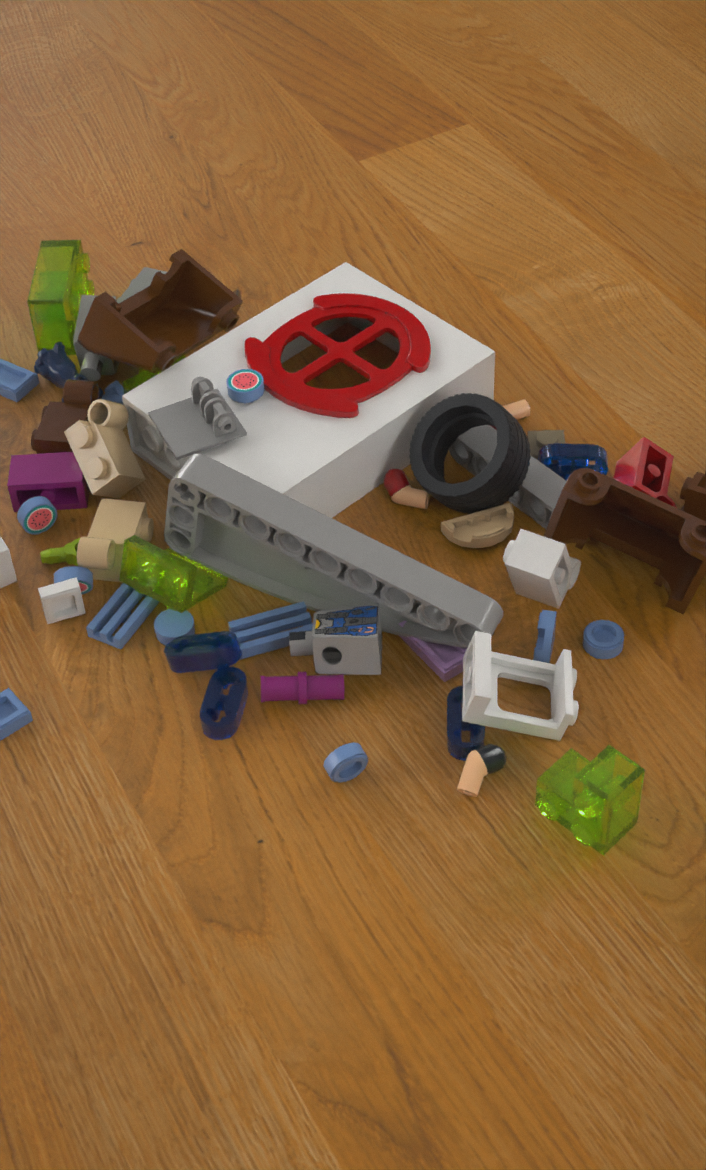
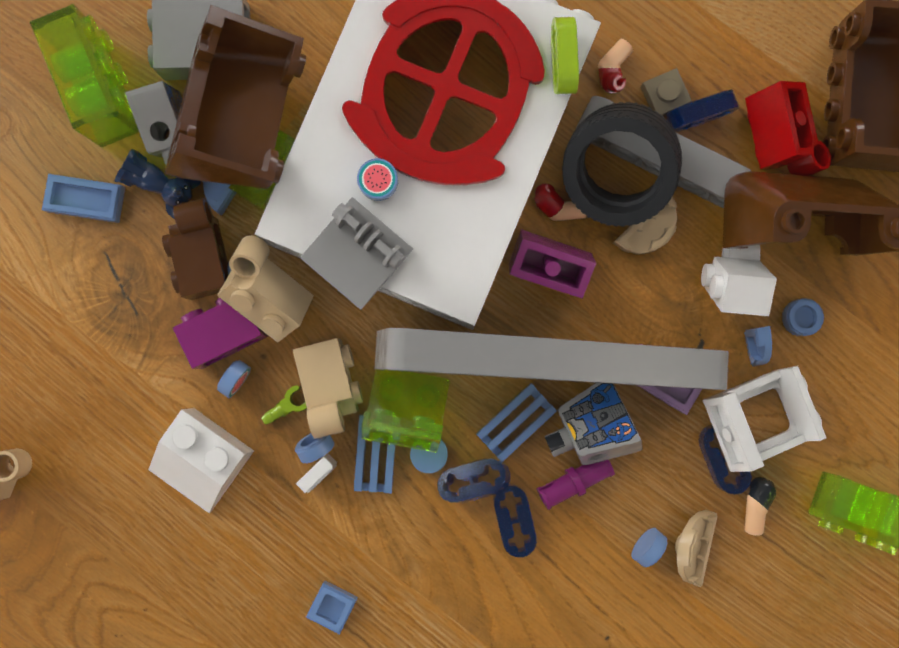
camera: 25 degrees left, 40 degrees up
(370, 511) = (551, 264): none -> magenta brick
(392, 781) = (694, 547): none -> tan plate
(447, 351) = (564, 55): none -> lime beam

